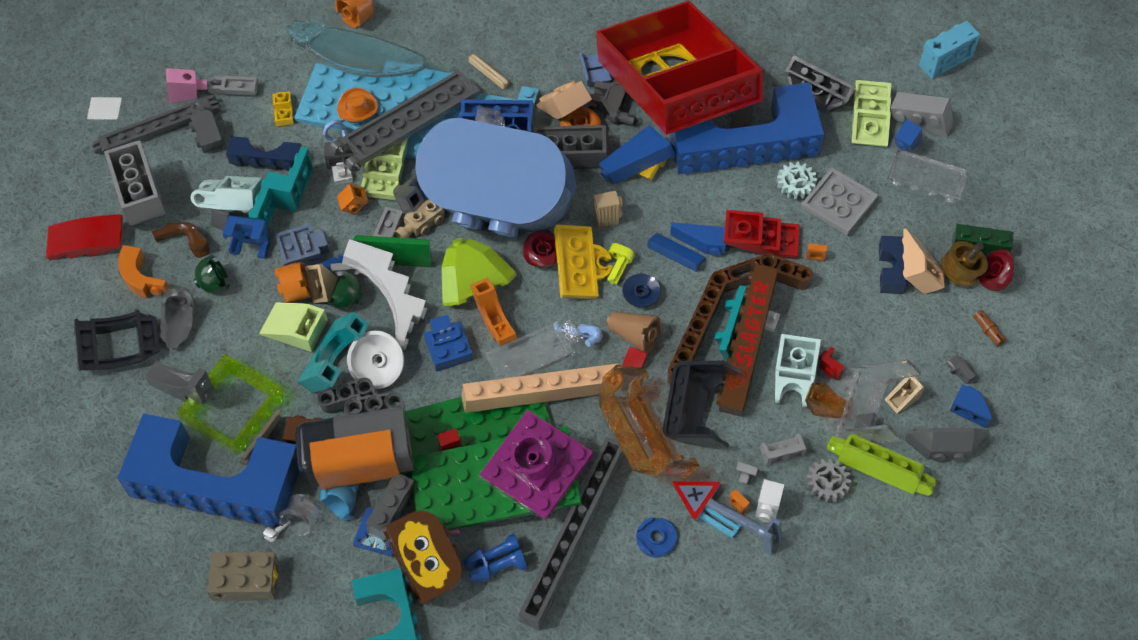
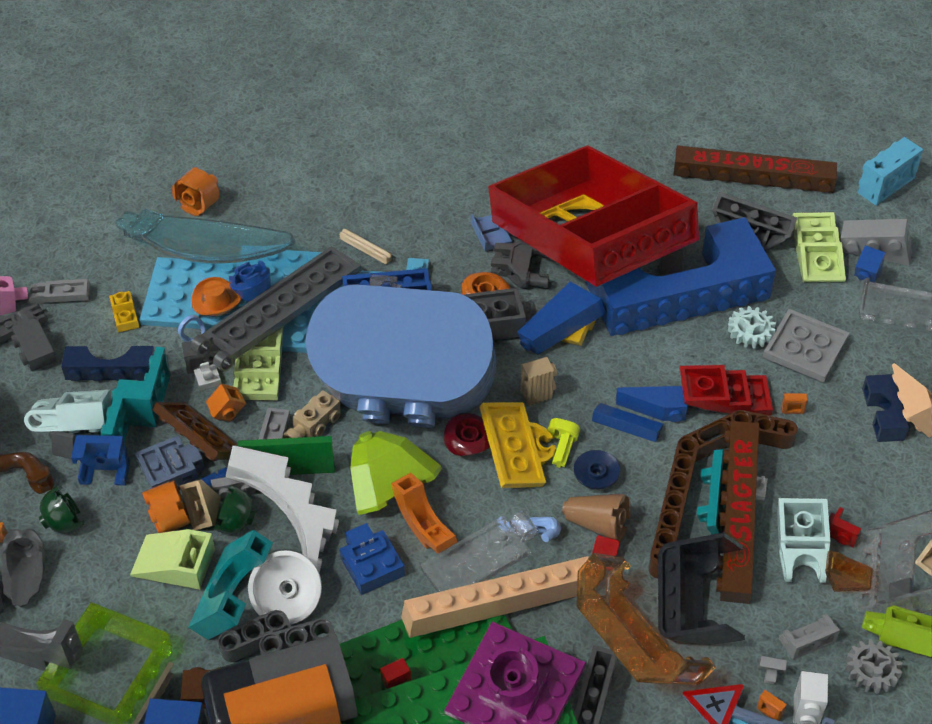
camera: 10 degrees left, 10 degrees down
(325, 218) = (196, 429): none -> reddish brown plate
(386, 94) = (250, 280): none -> blue cone
(409, 195) = (296, 390): flat silver brick -> none
(564, 99) = (463, 265): light nougat slope -> none
(833, 34) = (755, 169): none -> reddish brown brick

